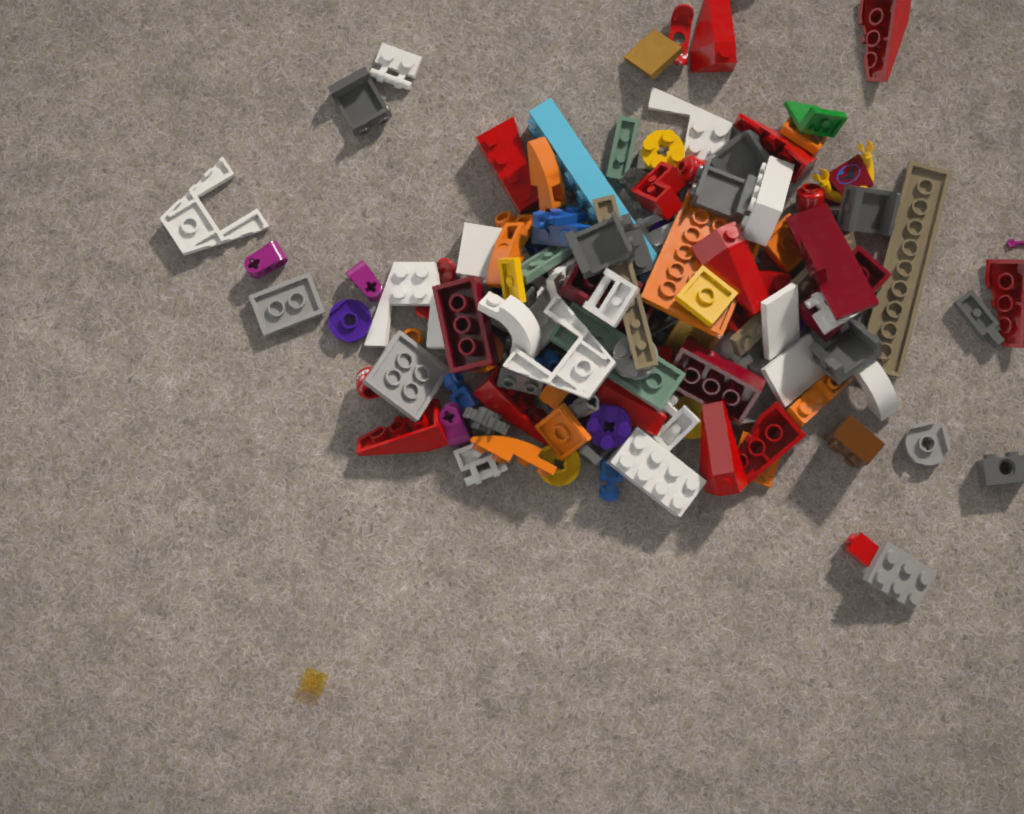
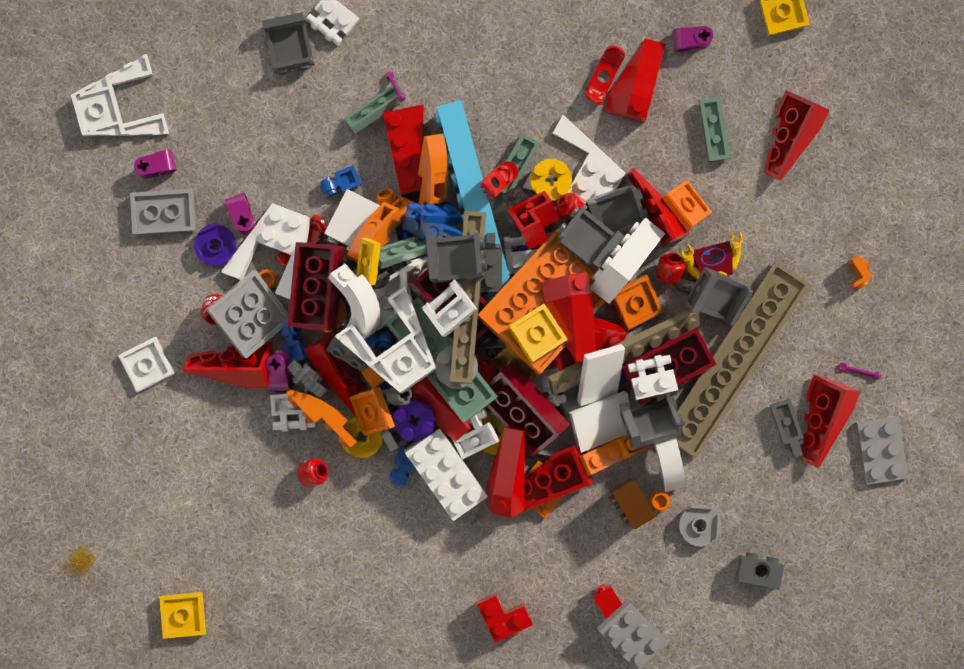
camera: 15 degrees right, 5 degrees up
(317, 461) = (146, 364): none -> white tile
(435, 704) = (182, 615): none -> yellow plate
(458, 215) = (346, 179): none -> blue plate
(466, 138) = (373, 110): none -> sand green plate
(470, 103) = (390, 76): none -> magenta hinge
(521, 515) = (312, 472): none -> red head
(613, 163) = (503, 174): none -> red piece
(653, 54) = (573, 85): pearl gold tile -> none
(763, 606) = (500, 622): none -> red brick
(804, 54) = (714, 129): none -> sand green plate
(815, 120) = (697, 195): green bracket -> none
(831, 262) = (664, 336): dark red bracket -> none
(880, 430) = (659, 501): none -> orange plate
(996, 143) = (860, 268): none -> orange bracket

